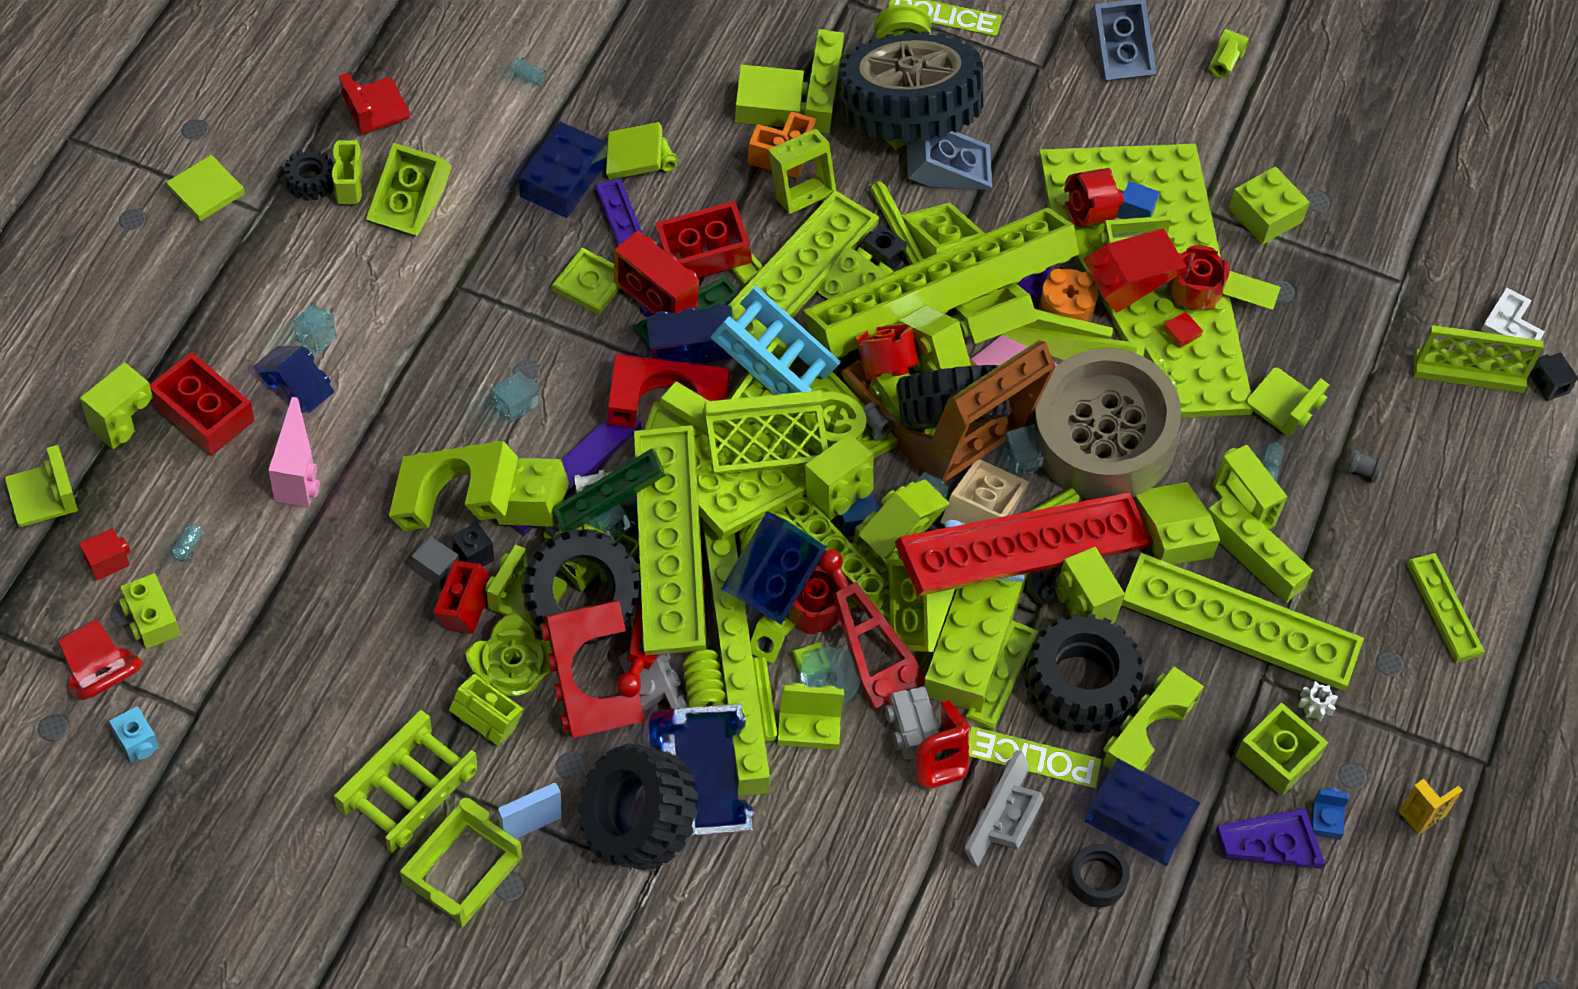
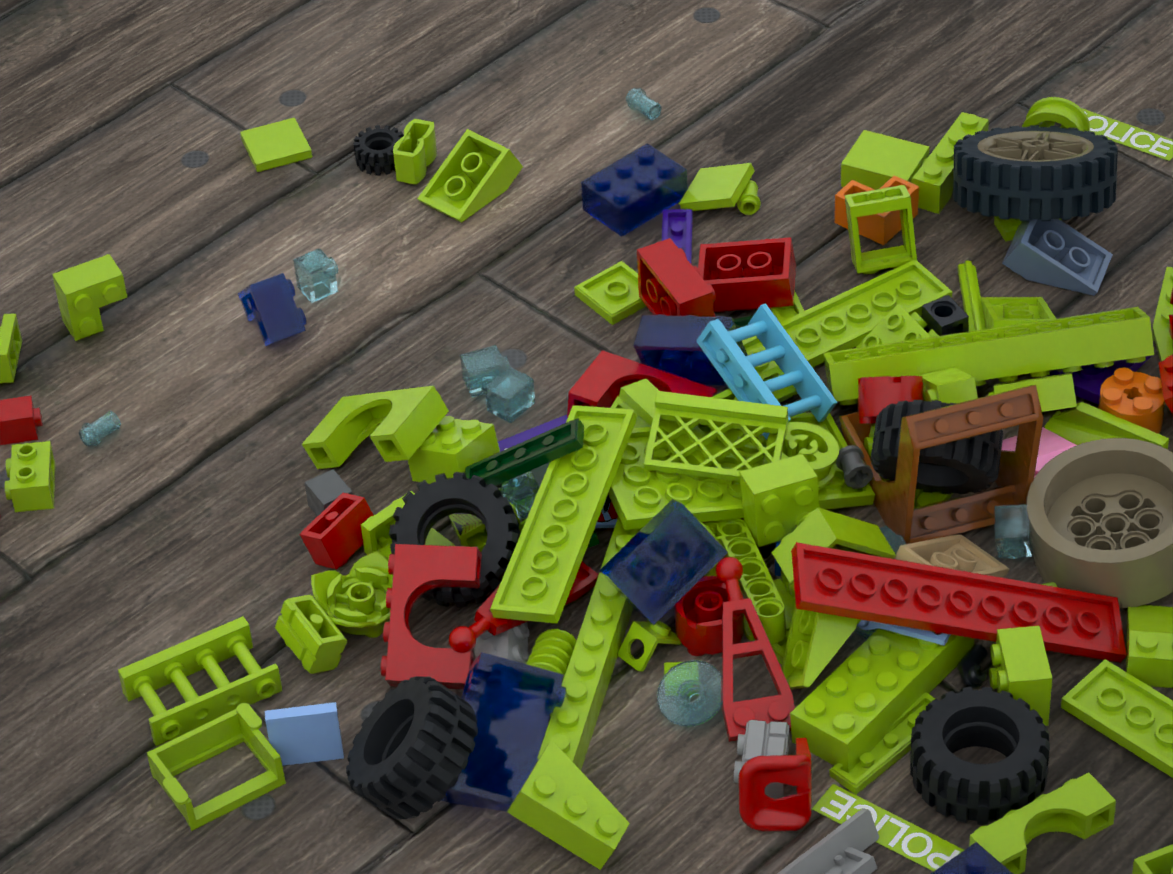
camera: 30 degrees right, 15 degrees down
(201, 403) = (172, 313): red brick -> none
(292, 464) = (232, 375): bright pink slope -> none
(373, 104) = (473, 104): red bracket -> none
(473, 545) = (374, 486): black brick -> none
(547, 414) = (510, 394): none -> clear light blue brick
(765, 698) = (610, 700): lime axle -> none
(784, 820) = (569, 808): none -> lime wedge
(810, 716) = (651, 722): lime bracket -> none

